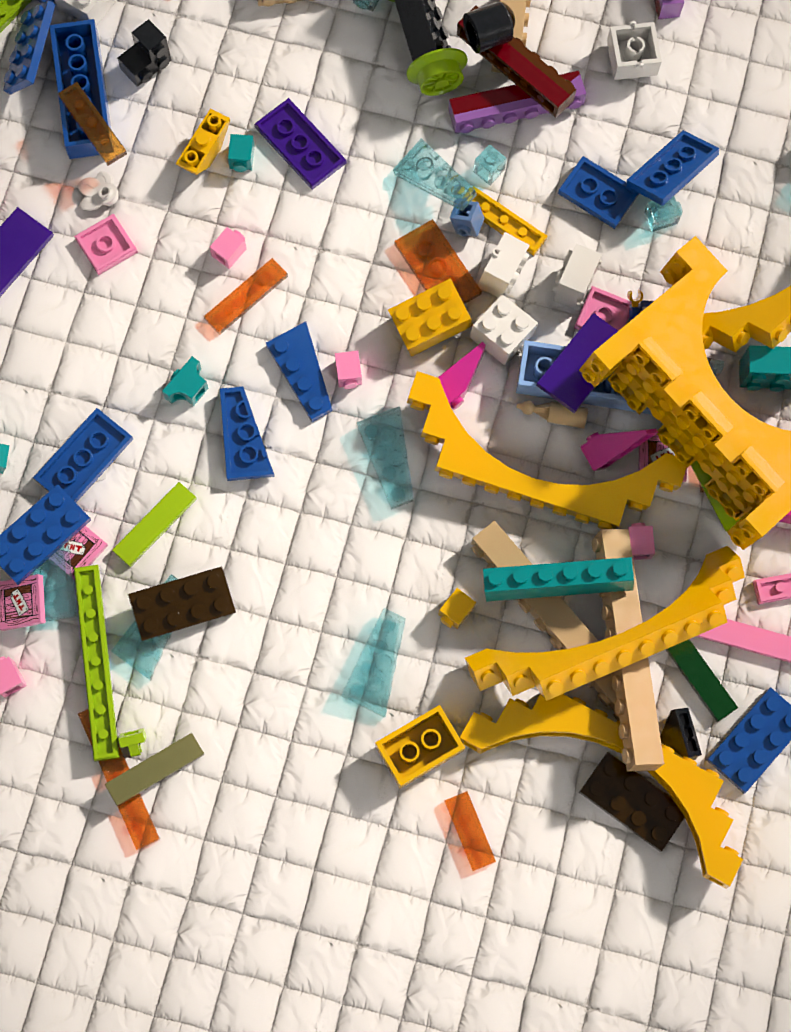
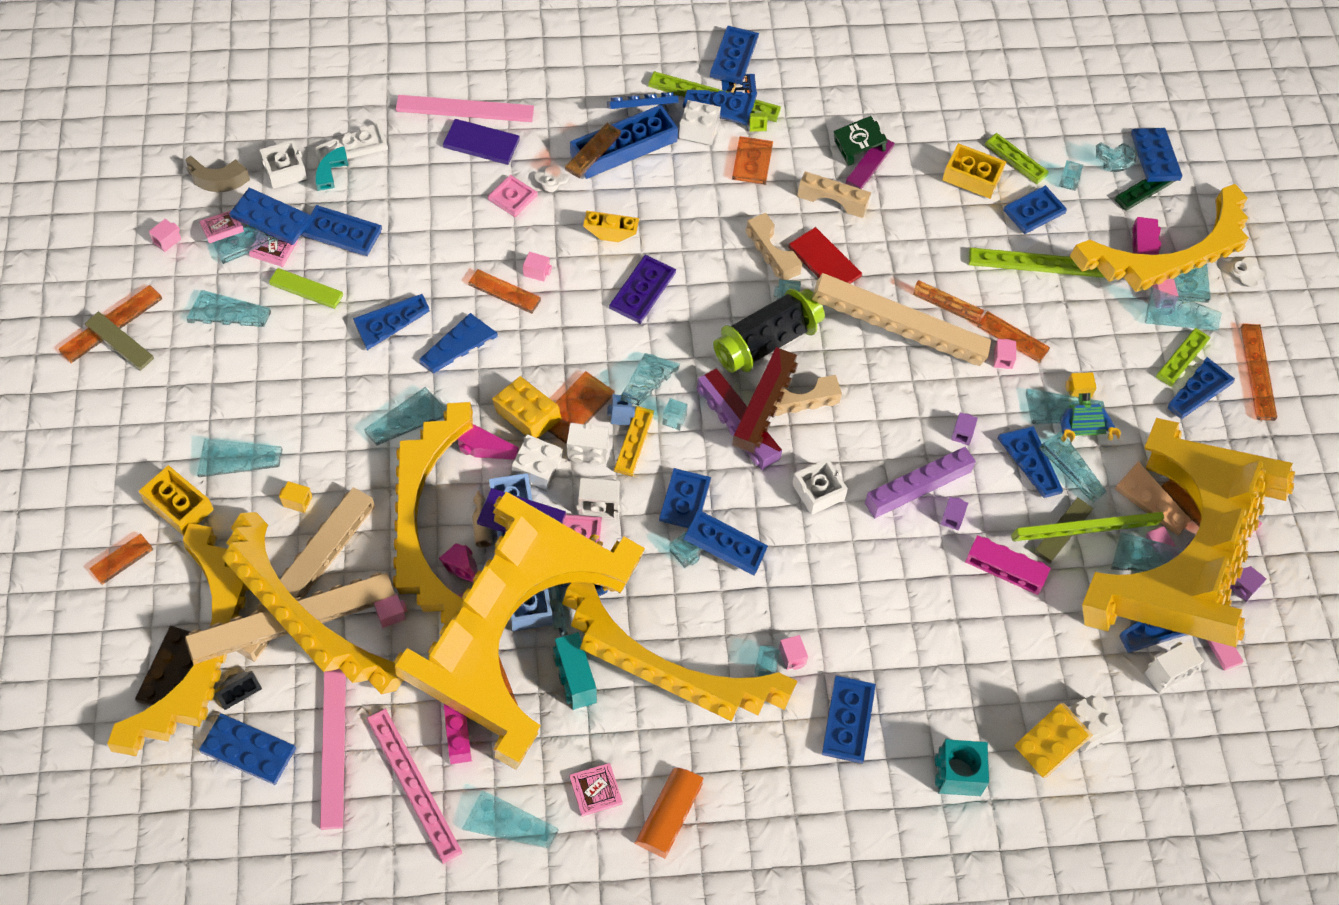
camera: 70 degrees right, 15 degrees down
(96, 663) = (188, 282): lime tile -> none
(132, 740) = (136, 322): lime tile -> none
(146, 55) = (668, 170): black brick -> none
(181, 603) = (247, 318): dark brown plate -> none
(186, 383) = (420, 273): teal brick -> none
(241, 152) = (616, 252): teal brick -> none
(348, 369) = (467, 370): bright pink brick -> none
(488, 27) = (773, 361): black piece -> none
(558, 579) = (330, 548): teal brick -> none
(702, 679) = (288, 691): dark green tile -> none

